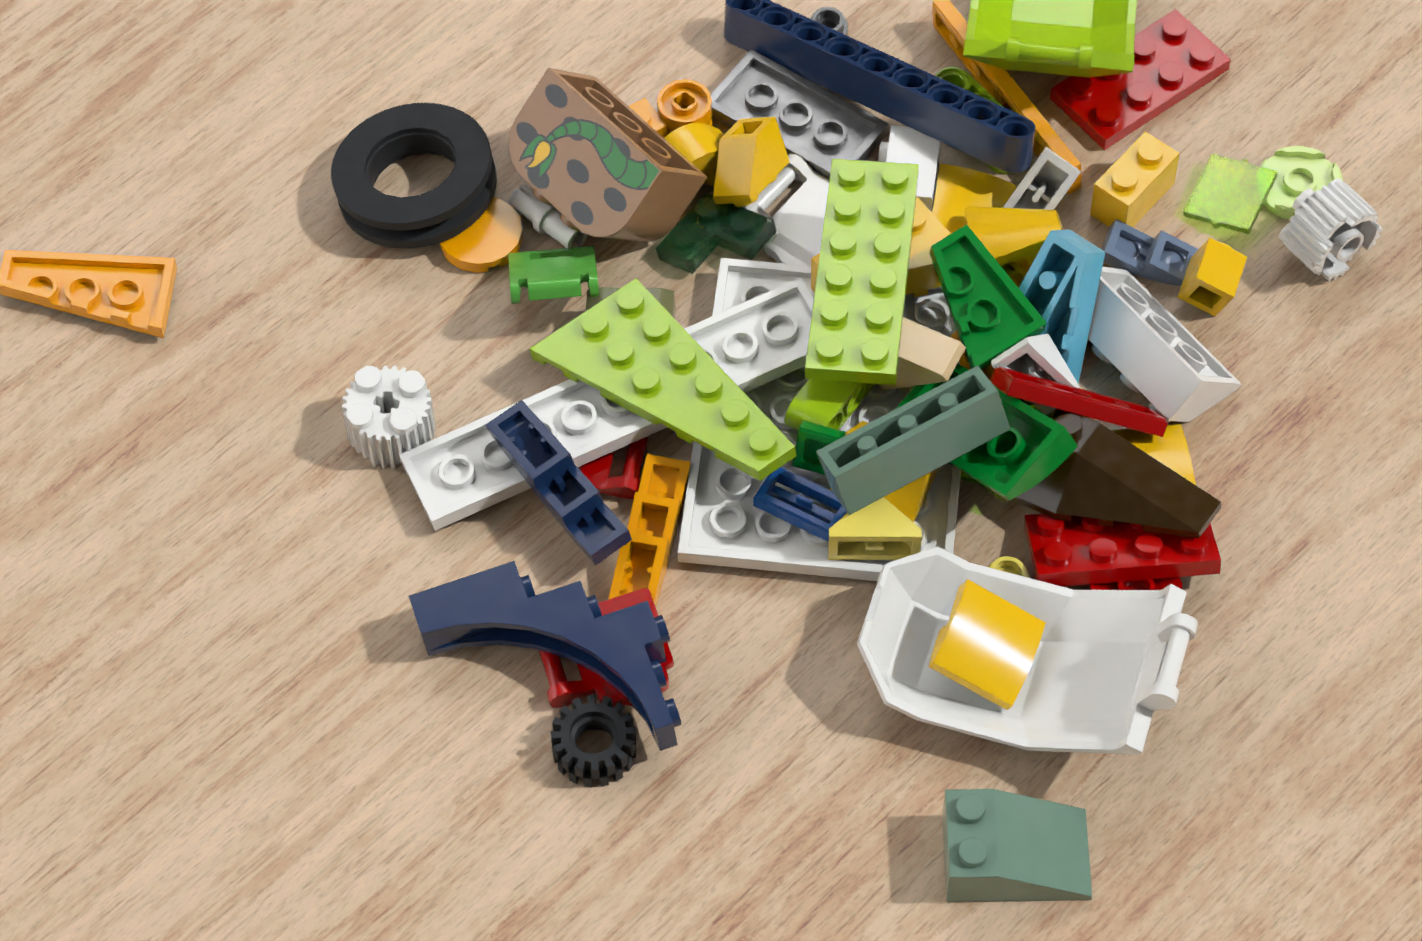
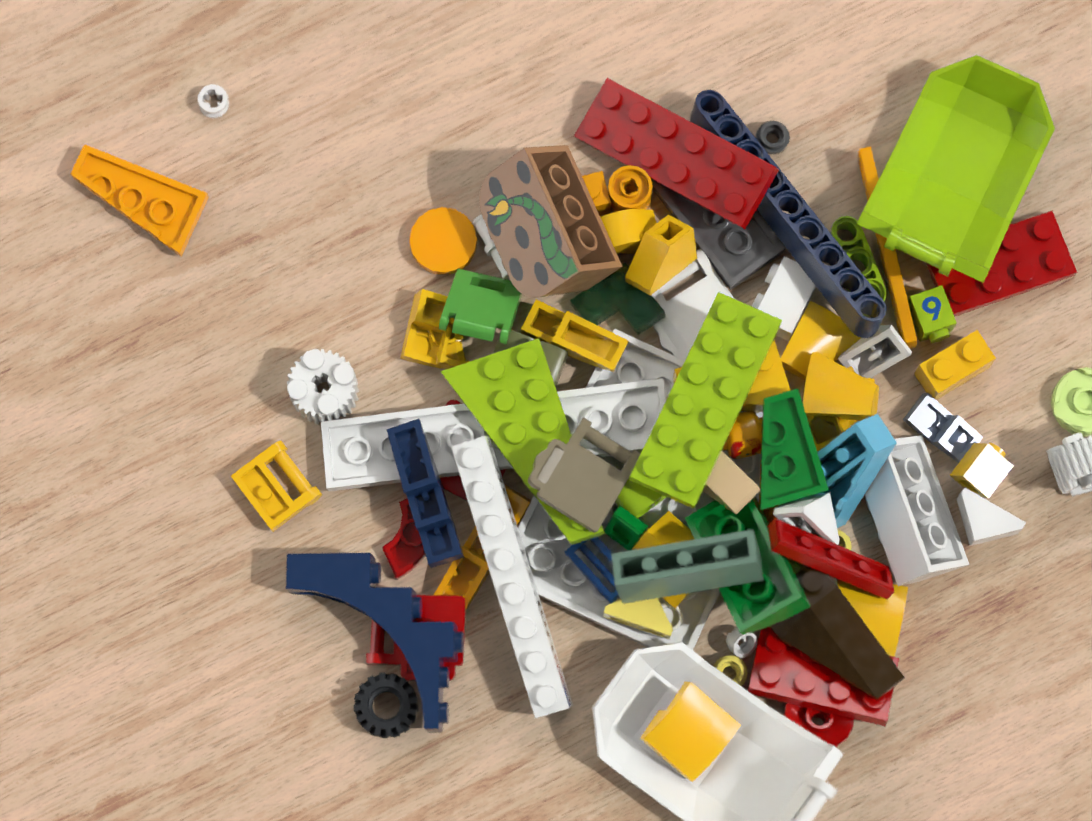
camera: 20 degrees right, 20 degrees up
(141, 177) = (205, 106): none -> white bush
(359, 553) = (267, 493): none -> yellow plate
(424, 217) = (400, 134): black tyre -> none
(498, 329) = (425, 341): none -> yellow slope
(557, 555) = (406, 548): none -> red tile
(692, 274) = (575, 335): none -> yellow slope
(702, 539) = (512, 576): none -> white brick
(728, 56) = (676, 153): none -> red plate
(742, 398) = (580, 481): none -> dark tan piece
(927, 307) = (745, 436): none -> light orange head
(1010, 534) = (746, 648): none -> white hinge
(1088, 139) = (932, 314): none -> lime brick
(1230, 193) = (1027, 395): clear neon green piece -> none
(1240, 326) = (985, 520): none -> white slope

